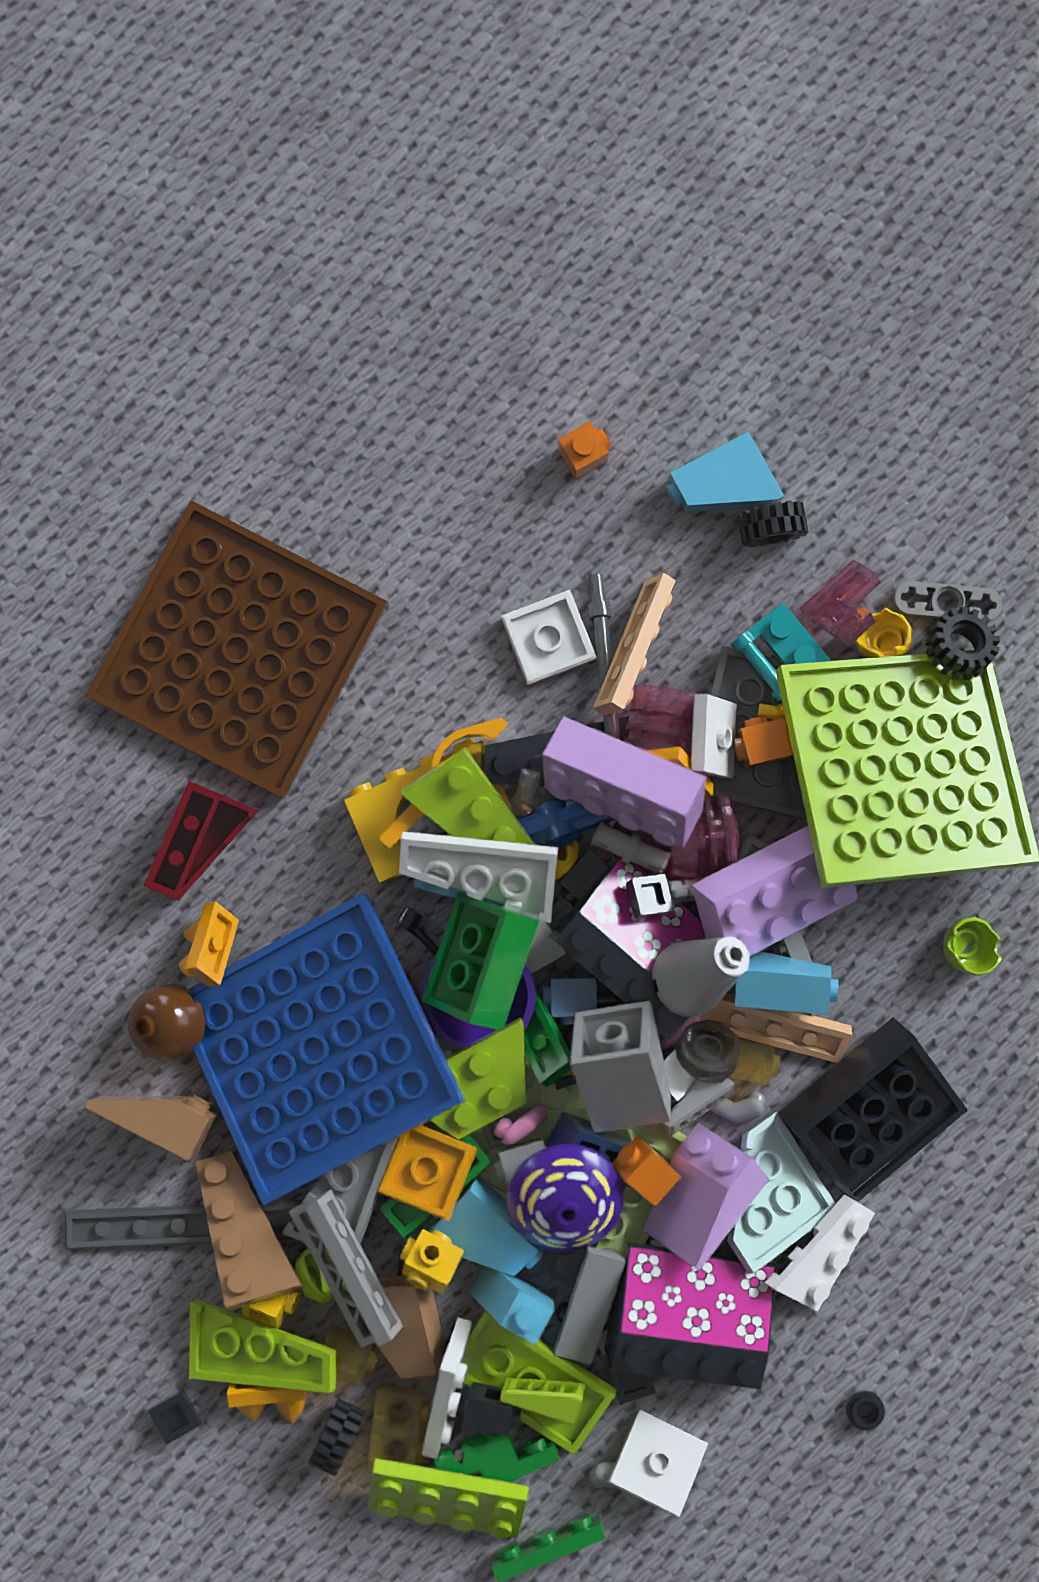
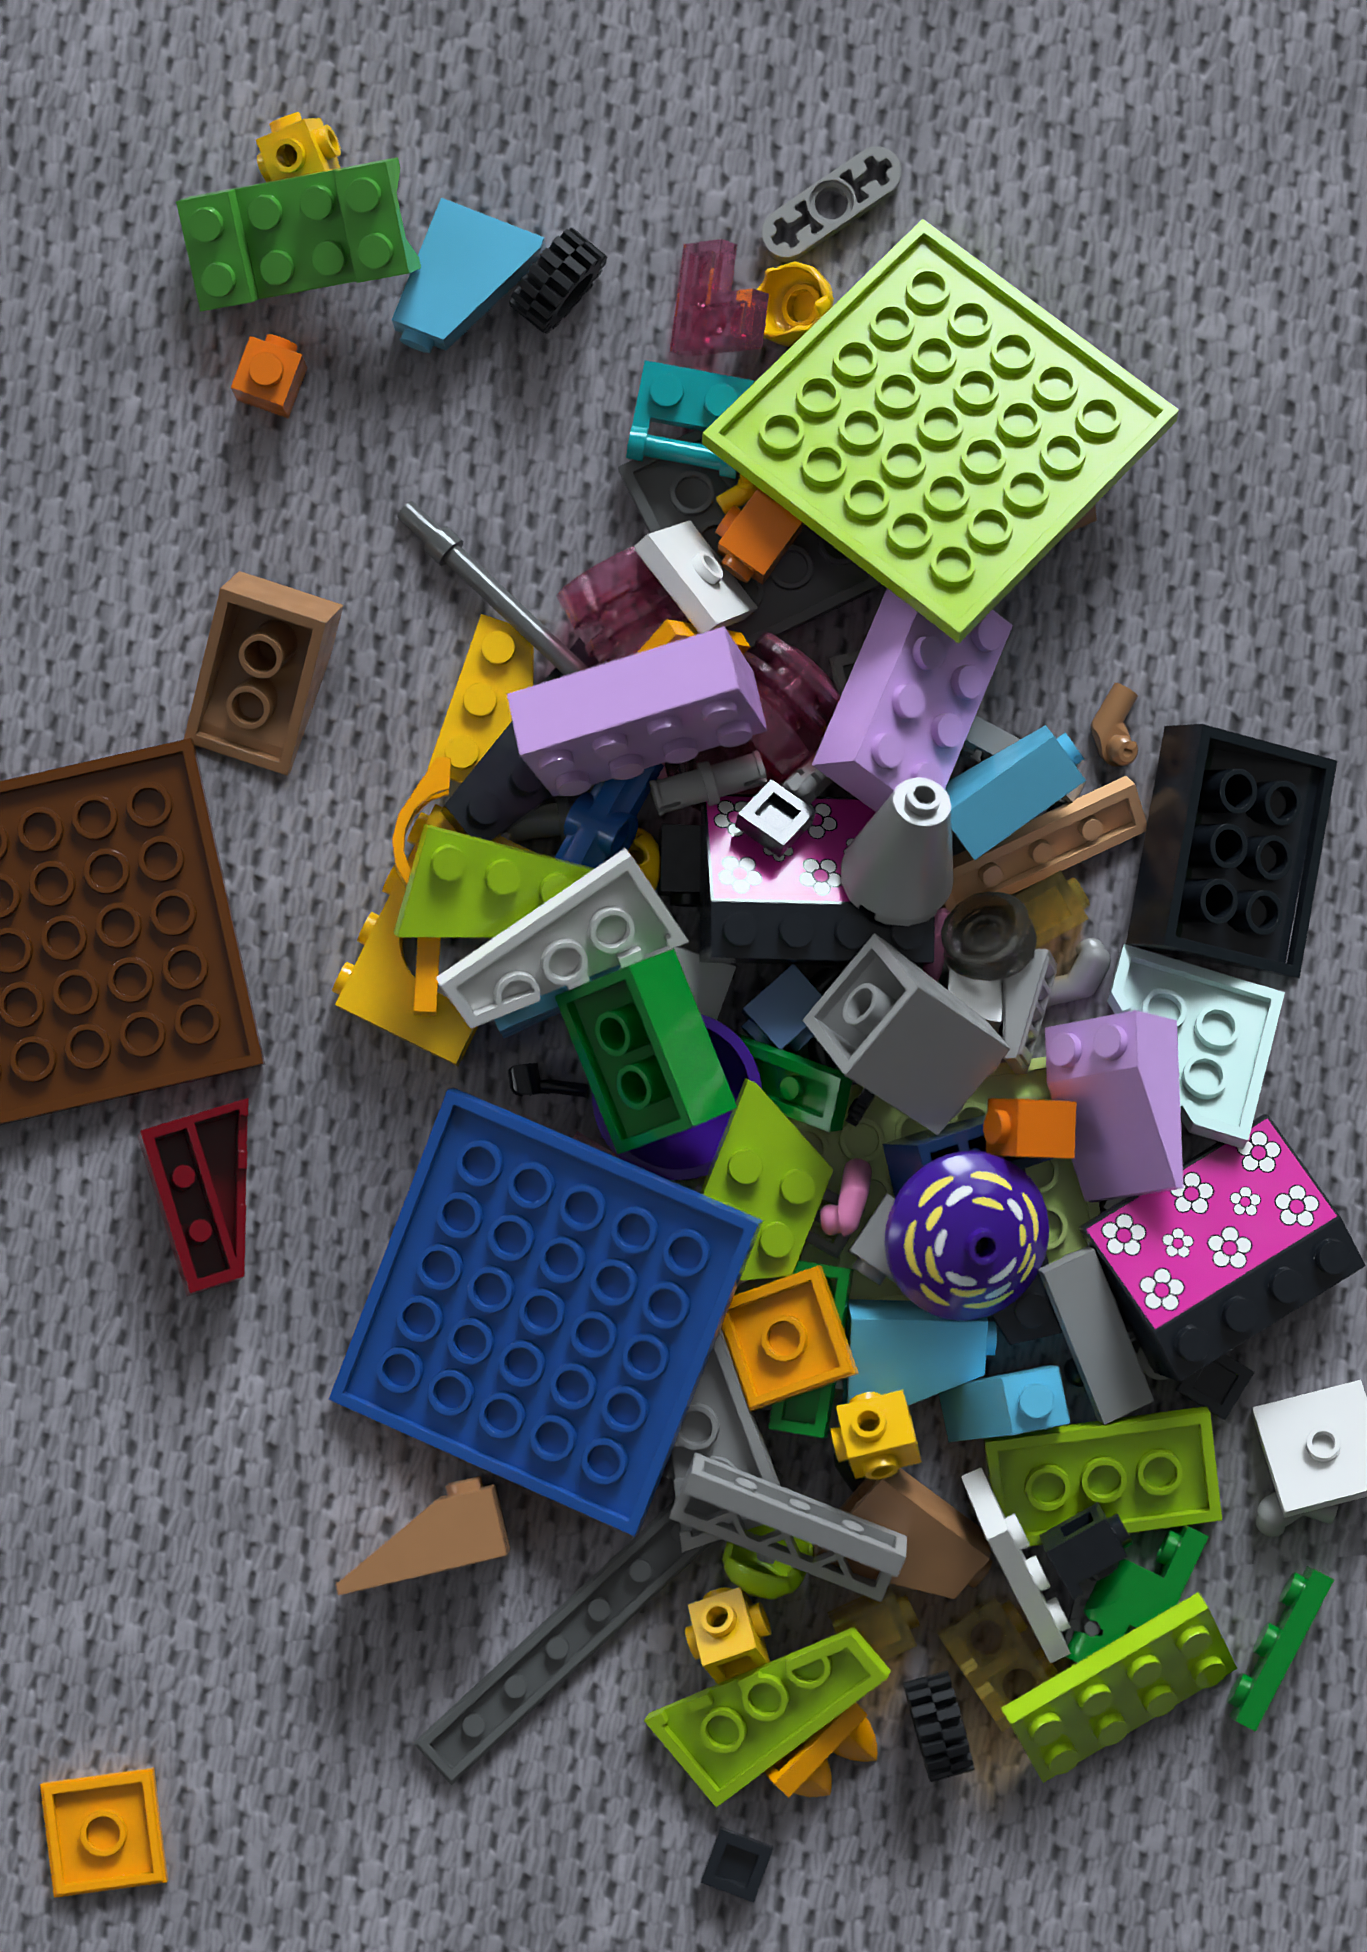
camera: 40 degrees left, 0 degrees up
(166, 1022) = (348, 1428): reddish brown cylinder -> none
(211, 944) = (323, 1295): light orange tile -> none
(244, 1244) = (646, 1596): medium nougat wing -> none
(452, 597) = (262, 671): none -> medium nougat slope
(524, 799) = (541, 831): clear arm -> none
(542, 712) = (479, 710): none -> yellow wing
(545, 1397) = (1138, 1476): lime slope -> none
(548, 637) = (411, 625): white plate -> none
(638, 635) = (513, 539): light nougat plate -> none
(658, 388) = (296, 234): none -> bright green piece
(693, 350) = (297, 148): none -> yellow brick
(822, 1260) = (1314, 1066): white wing -> none
(863, 993) = (1110, 730): none -> medium nougat arm
(971, 628) = (887, 211): black tyre -> none
(982, 957) = (1207, 570): lime hair -> none

